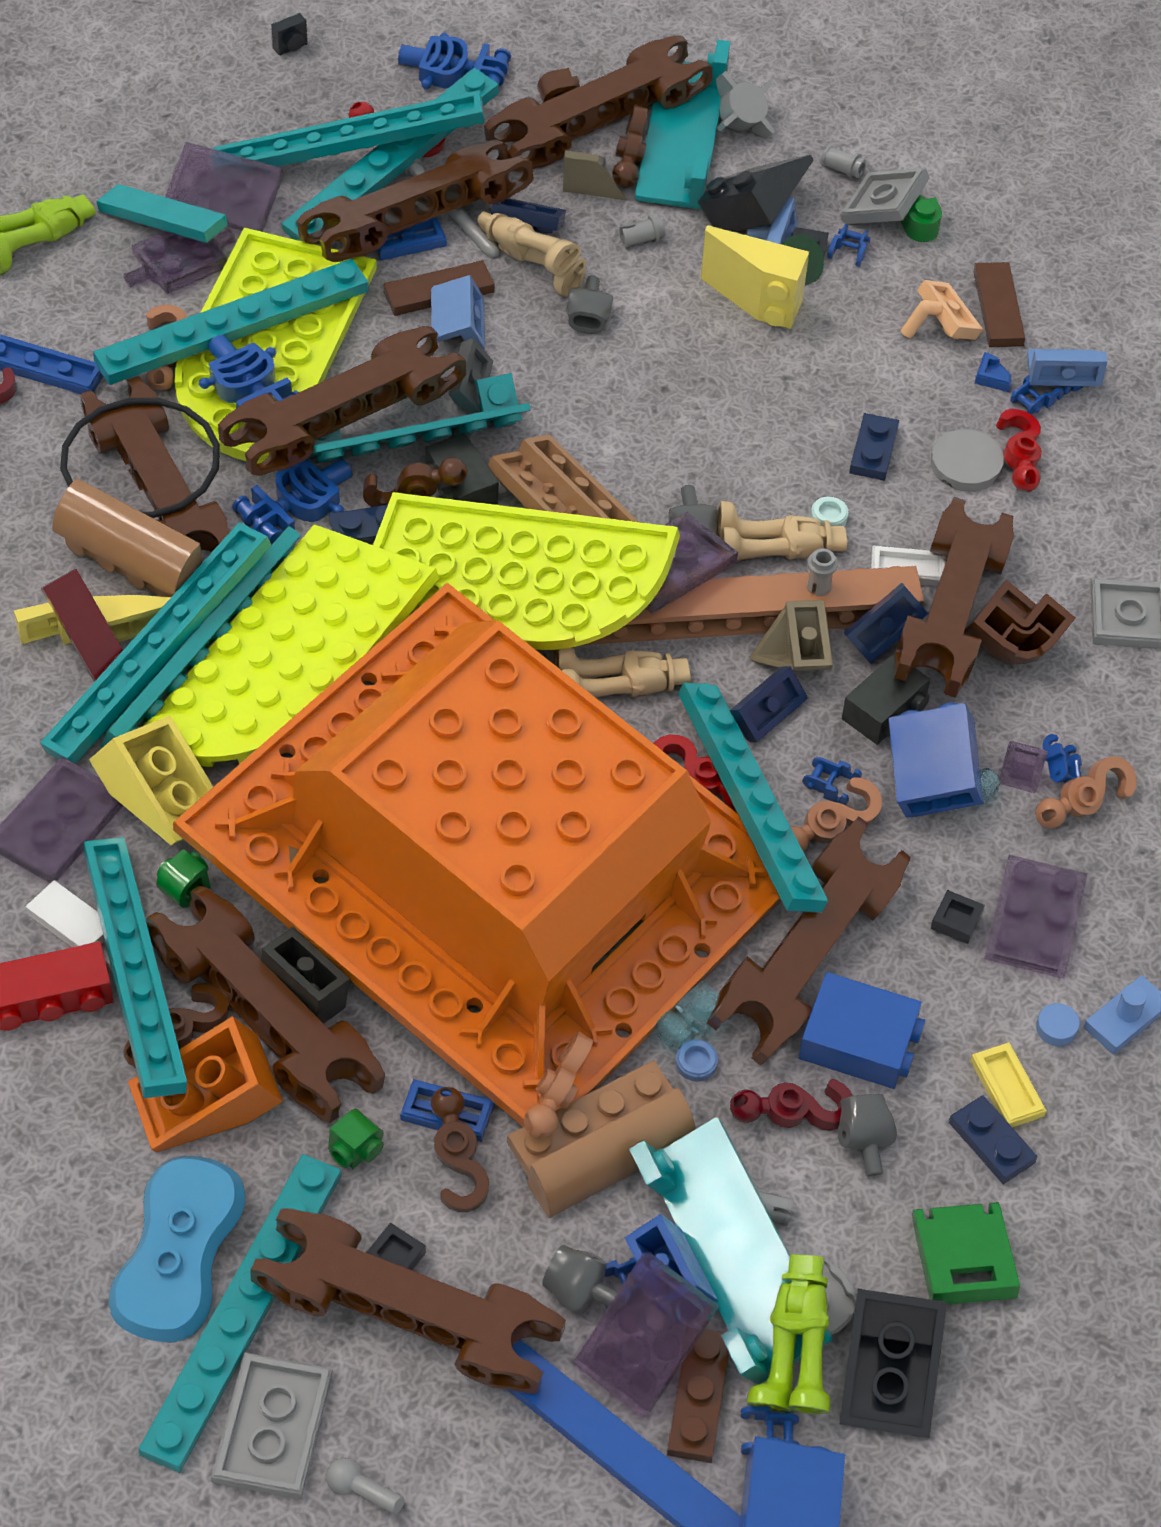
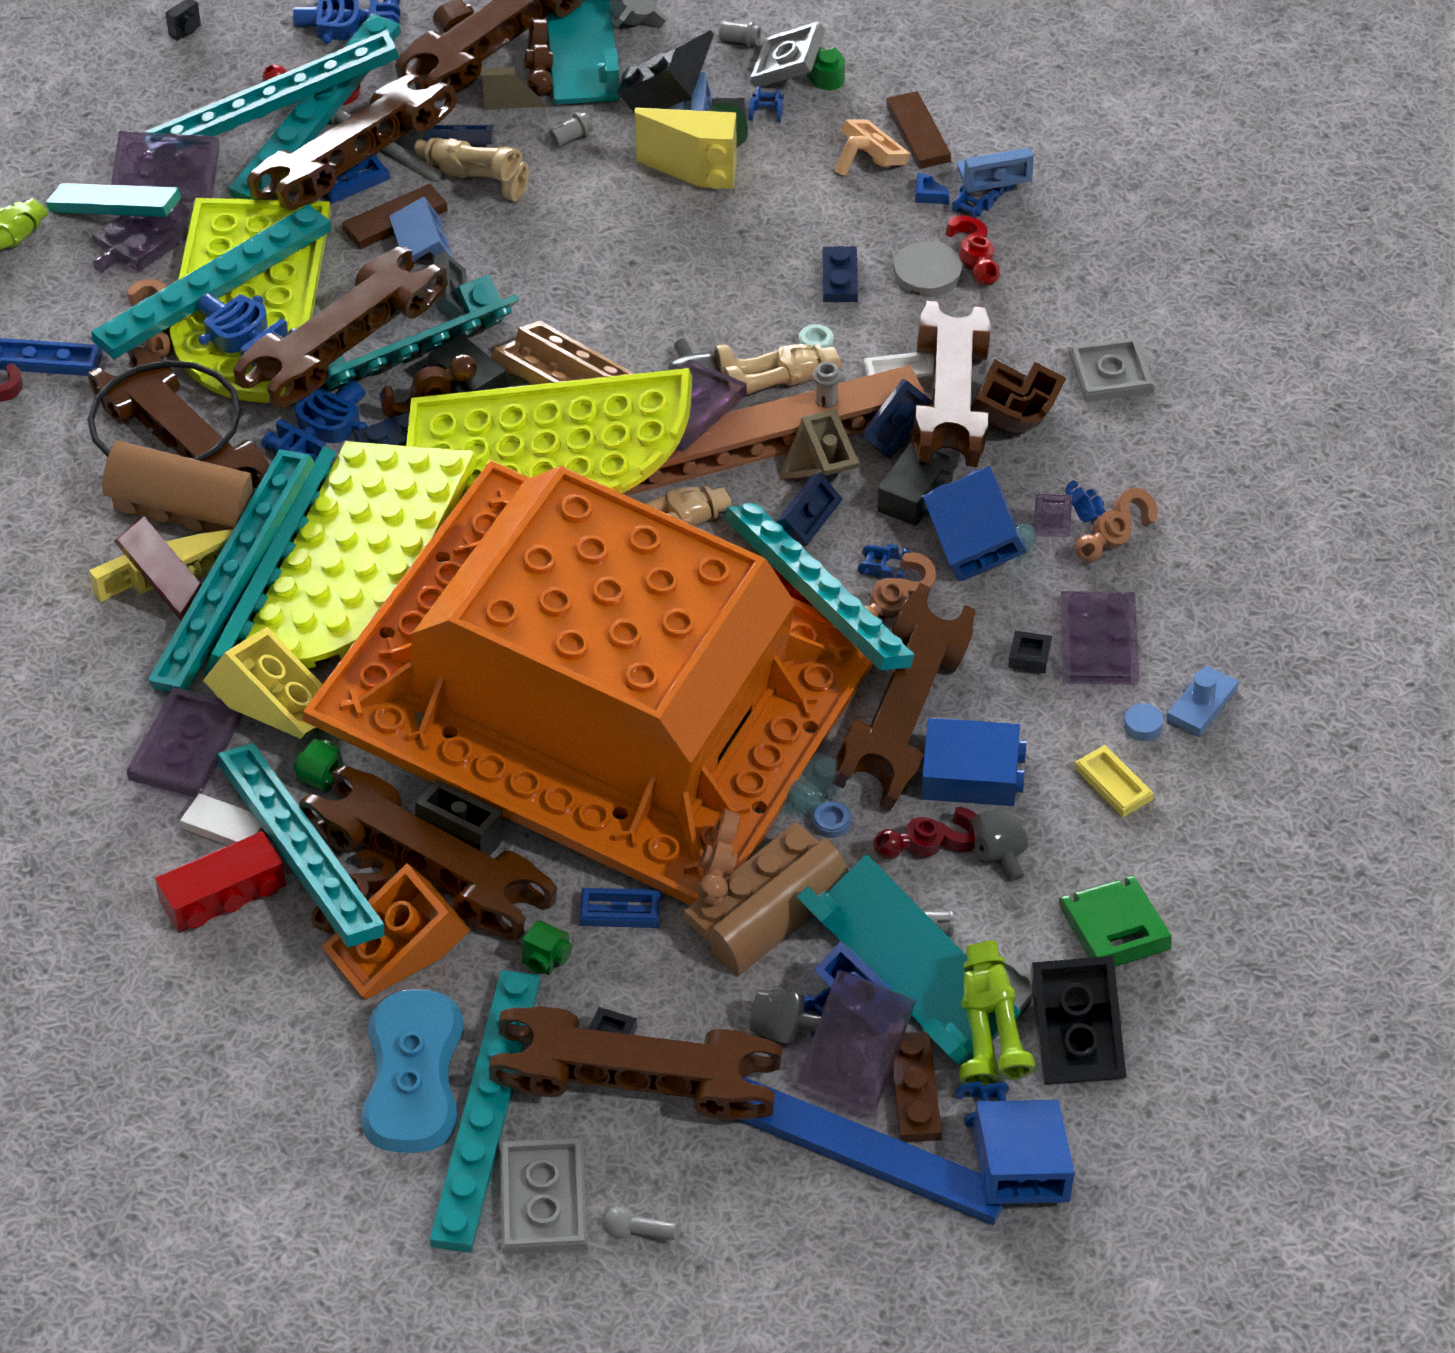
camera: 10 degrees left, 5 degrees down
(455, 1148) = (638, 935): reddish brown piece -> none
(589, 307) = (541, 205): dark grey piece -> none
(993, 1139) = (1113, 827): dark blue plate -> none

